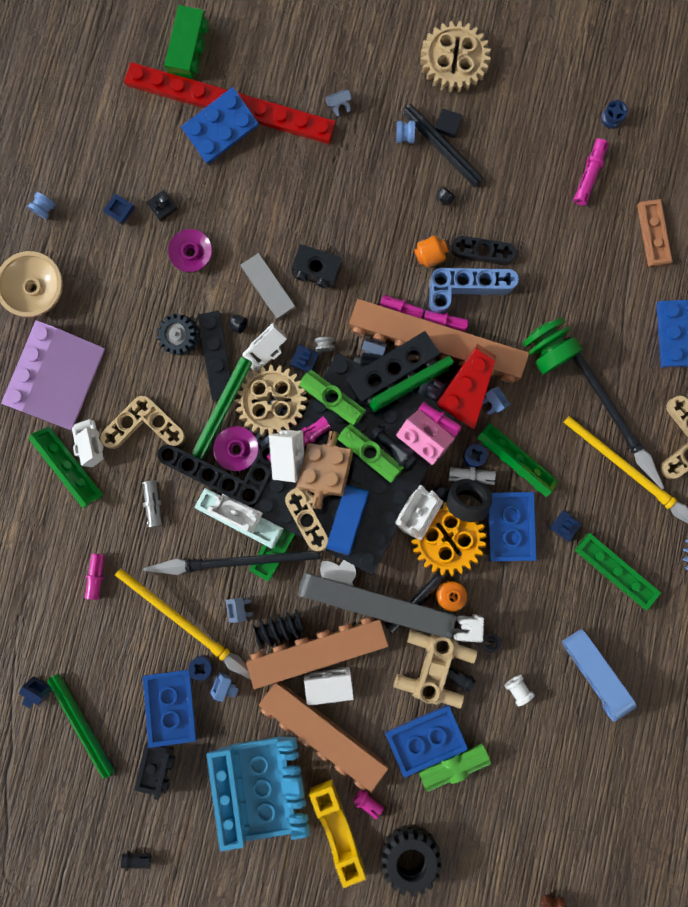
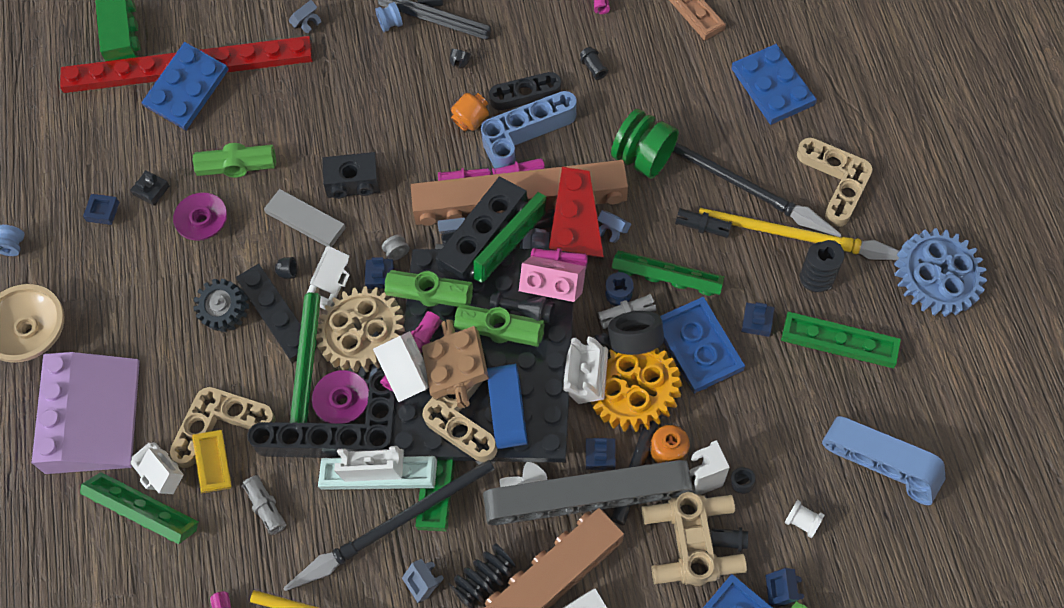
camera: 25 degrees left, 20 degrees down
(127, 455) = (211, 461): none -> yellow tile
(233, 211) = (234, 160): none -> bright green piece
(401, 575) = (600, 453): none -> dark blue tile
(479, 731) = (783, 587): none -> dark blue tile
(549, 249) = (591, 59): none -> black pin
(564, 430) = (703, 223): none -> black pin
(634, 512) = (821, 265): none -> black piece

